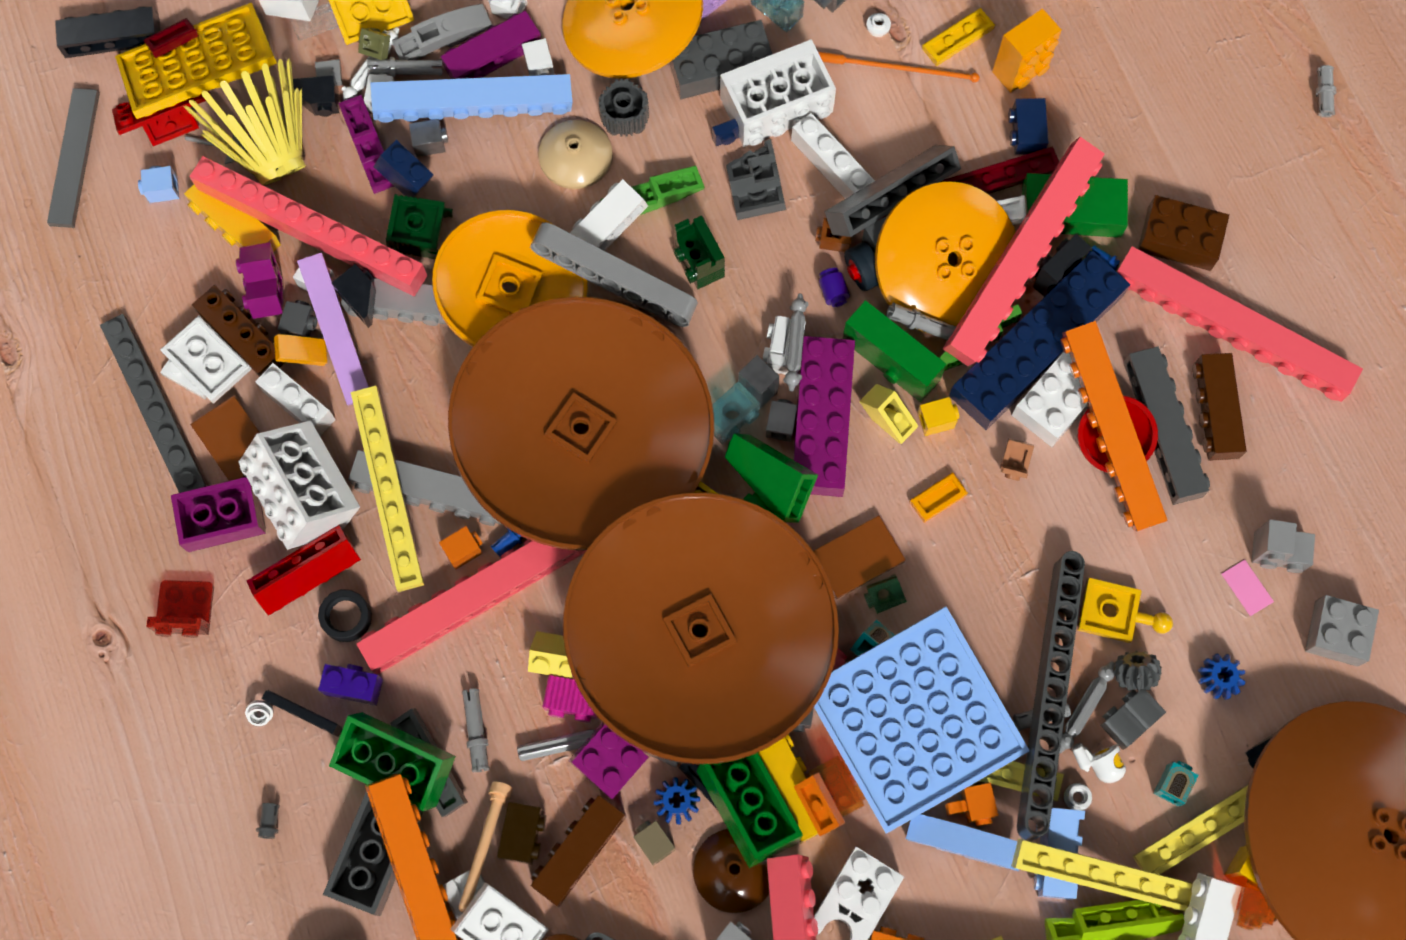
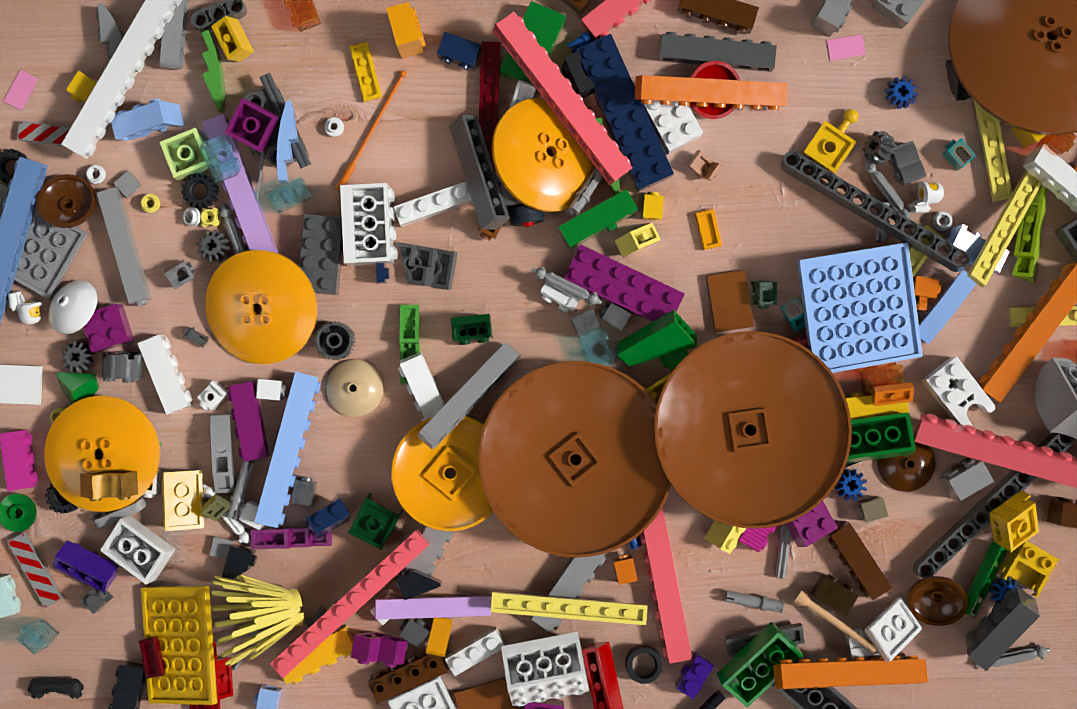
camera: 75 degrees left, 15 degrees up
(833, 287) = (530, 241): dark purple brick -> none

